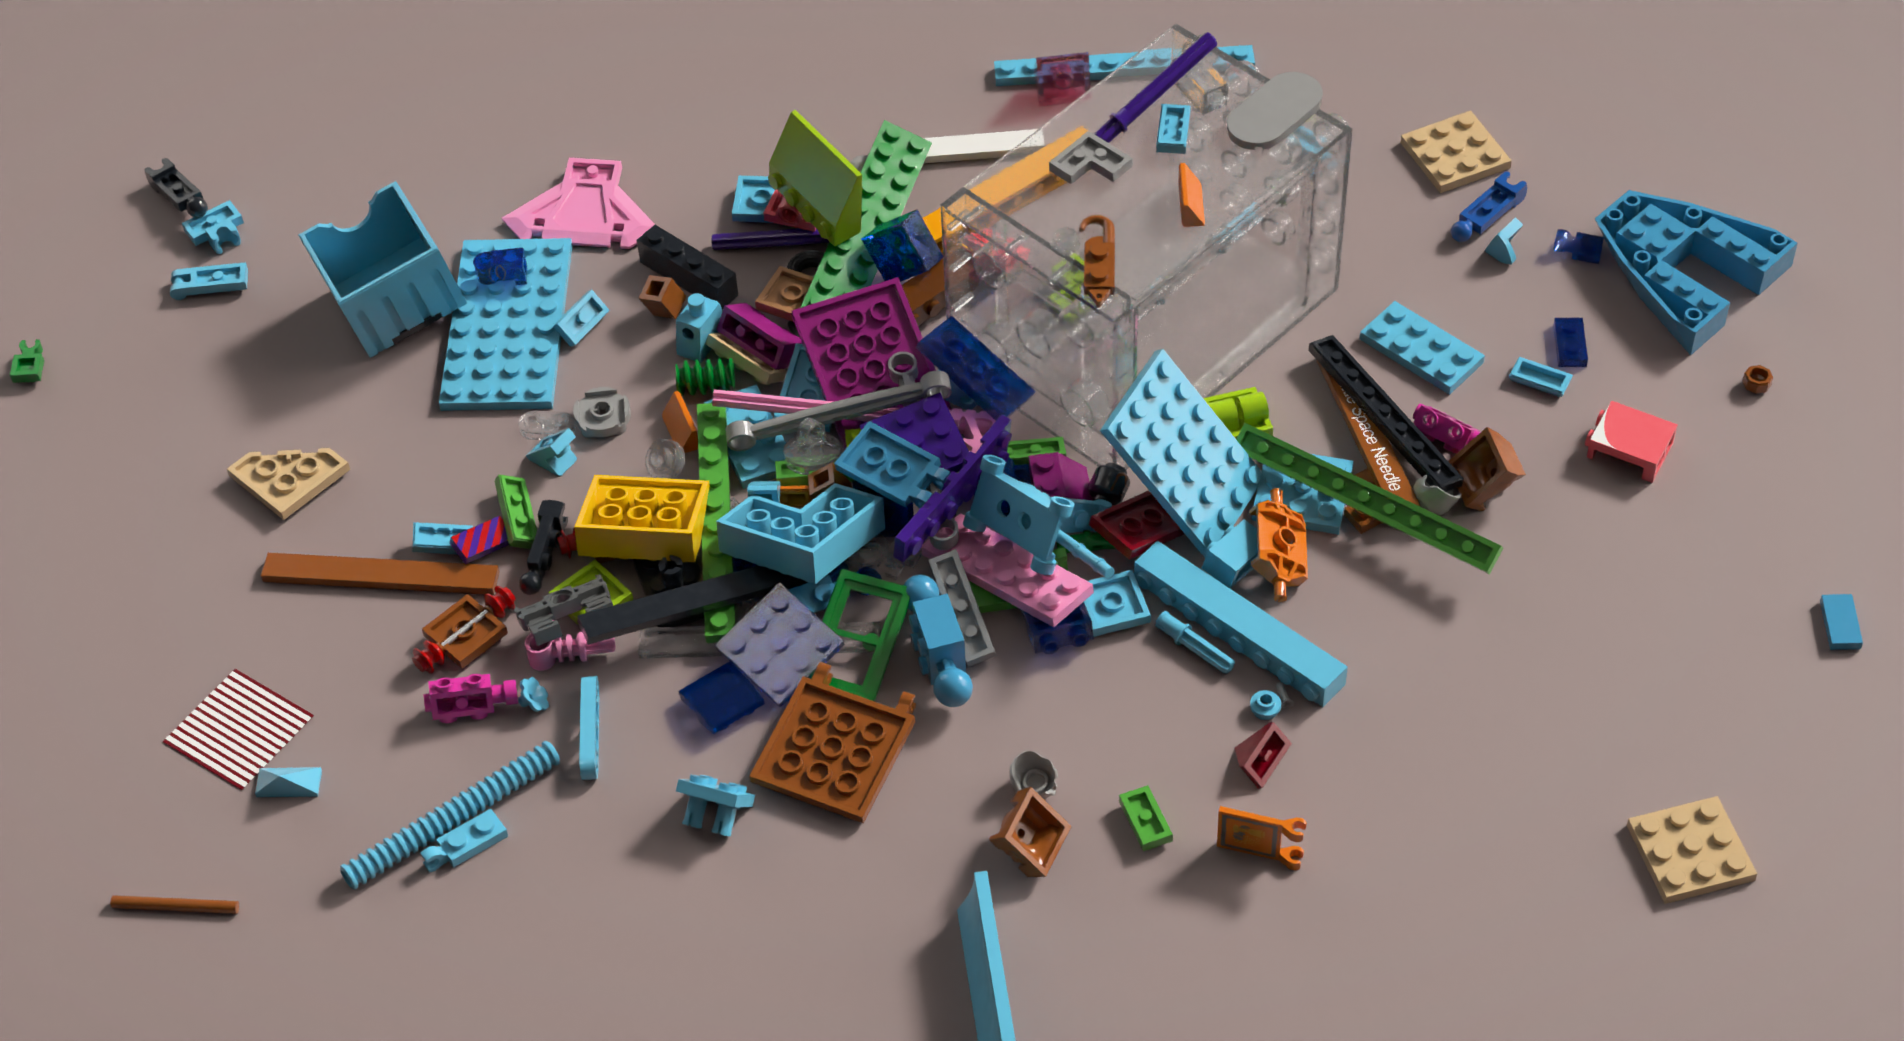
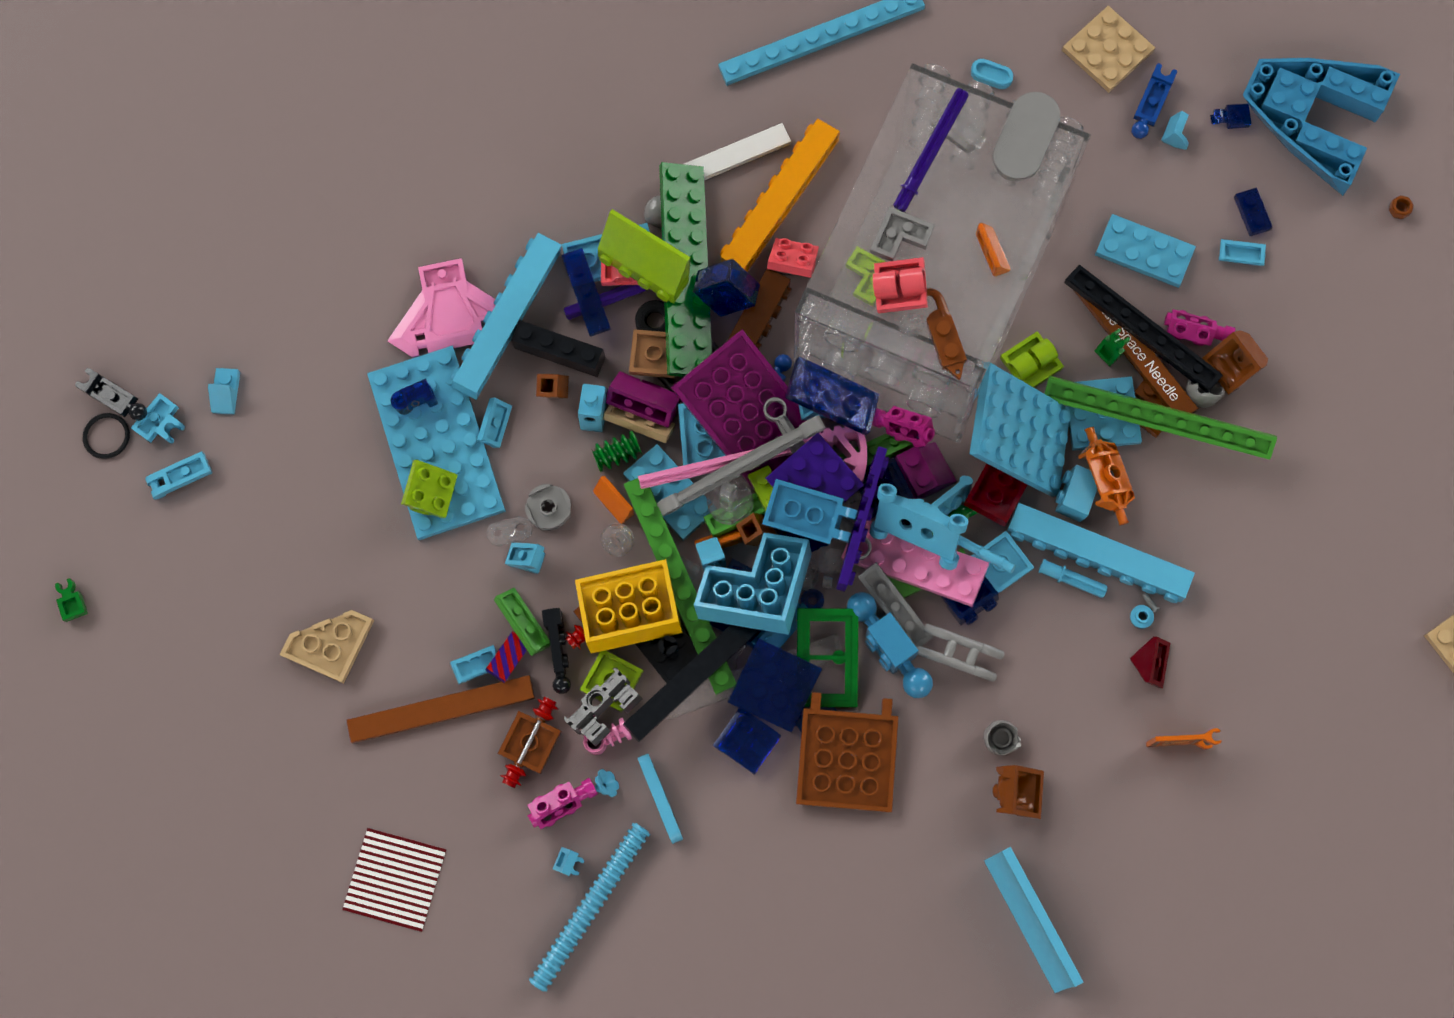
camera: 15 degrees left, 25 degrees up
(154, 246) = (120, 449): none -> black tyre
(288, 782) = (454, 914): medium azure slope -> none
(299, 217) = (224, 391): none -> medium azure slope
(384, 271) = (326, 441): medium azure piece -> none
(448, 759) = (566, 861): none -> medium azure tile
(465, 841) = (610, 922): medium azure plate -> none
(473, 351) = (429, 489): none -> lime plate
(665, 207) = (502, 321): none -> medium azure brick
(705, 789) = (780, 832): medium azure plate -> none
(743, 222) = (586, 292): none -> clear blue tile
(1026, 691) = (947, 657): none -> light grey piece
(1050, 426) = (905, 425): none -> dark pink brick
(1061, 78) = (782, 70): clear pink slope -> none
(1066, 201) = (900, 285): none -> coral plate
(1109, 483) = (959, 458): black head -> none
(1145, 818) = (1092, 744): bright green plate -> none
(1173, 129) = (954, 181): medium azure plate -> none
(1336, 423) = (1111, 347): none -> green plate
(1632, 438) = (1328, 294): coral panel -> none

